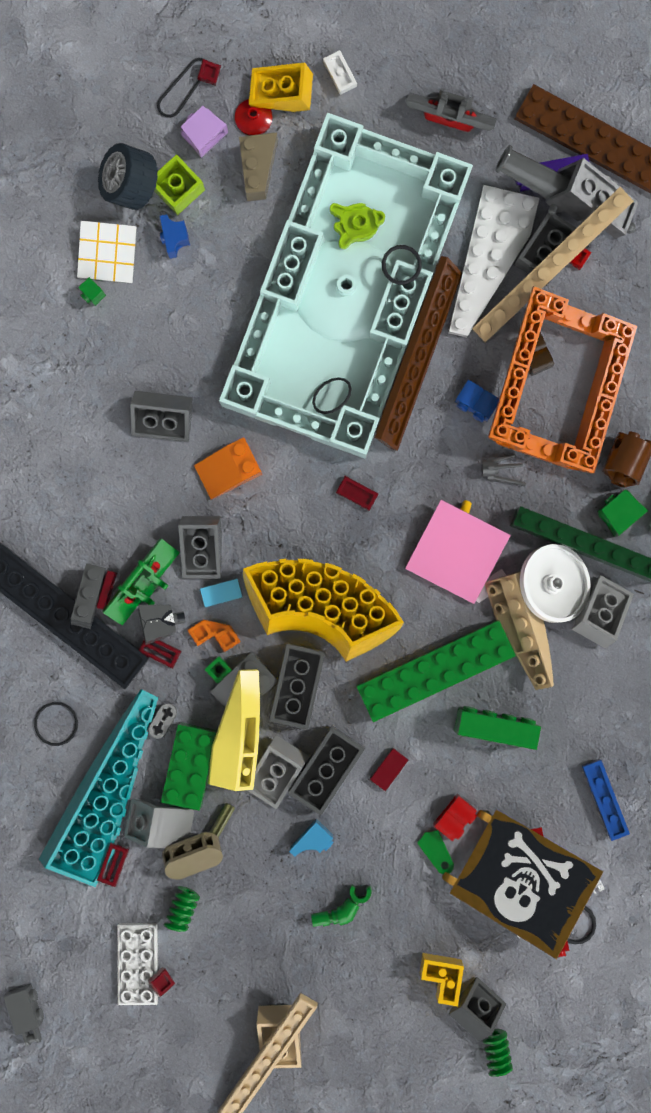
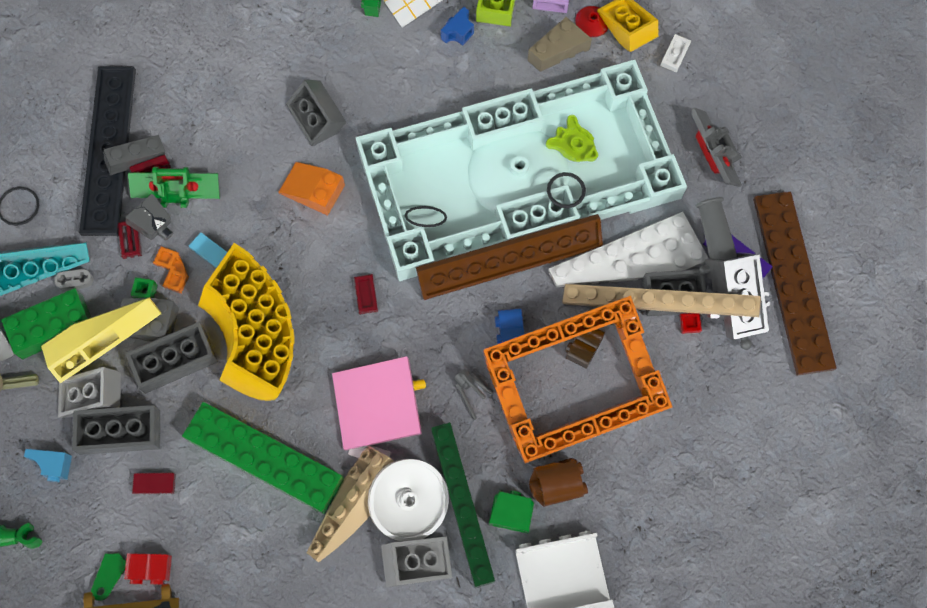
camera: 50 degrees right, 15 degrees down
(200, 547) = (234, 209): dark grey slope -> none
(498, 729) = (248, 543): green brick -> none

